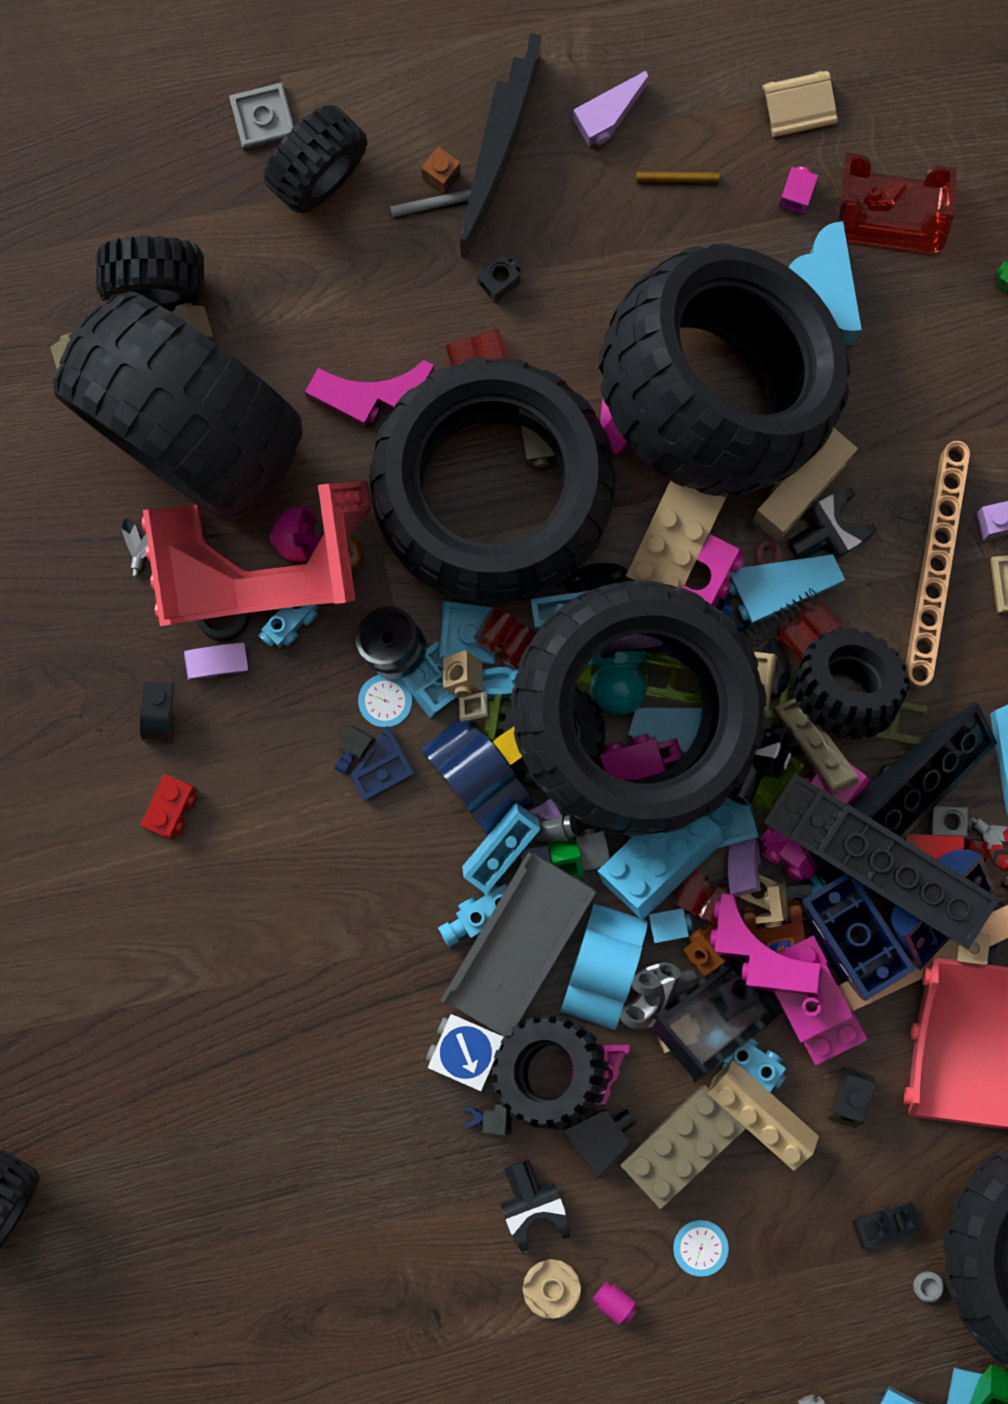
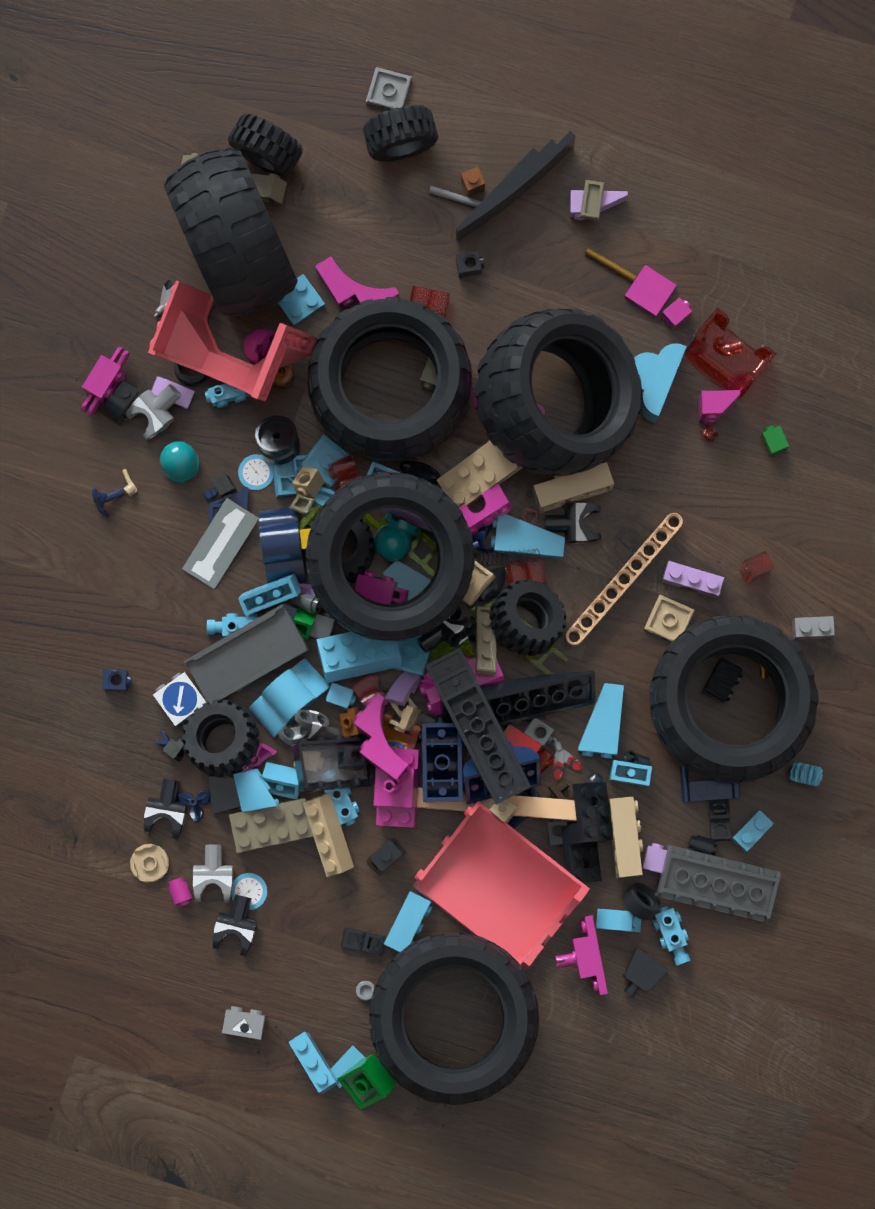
camera: 30 degrees right, 0 degrees up
(120, 696) = (104, 380): none -> dark pink brick
(169, 806) = (95, 461): red bracket -> none
(207, 850) = (101, 498): none -> dark blue plant
(208, 695) = (155, 409): none -> light grey connector
(236, 815) = (130, 488): none -> tan hand
(280, 744) = (179, 461): none -> teal tile
(316, 450) = (301, 302): none -> medium azure plate
(354, 1079) = (108, 675): none -> dark blue brick
(395, 819) = (220, 543): none -> light grey sticker
(571, 1185) = (196, 811): none -> dark blue plant
(608, 106) = (592, 200): none -> dark tan tile
(634, 1116) = (253, 791): none -> medium azure slope
(642, 1253) = (213, 873): none -> light grey connector
(659, 1081) = (281, 780): none -> medium azure brick
(712, 1301) = (236, 923): none -> black connector
(747, 181) = (650, 291): none -> dark pink tile
(800, 103) = (709, 263): tan piece -> none
(918, 276) = (715, 404): none -> dark pink slope
(930, 317) = (709, 433): none -> clear red bush
(931, 1167) = (408, 922): none -> medium azure brick

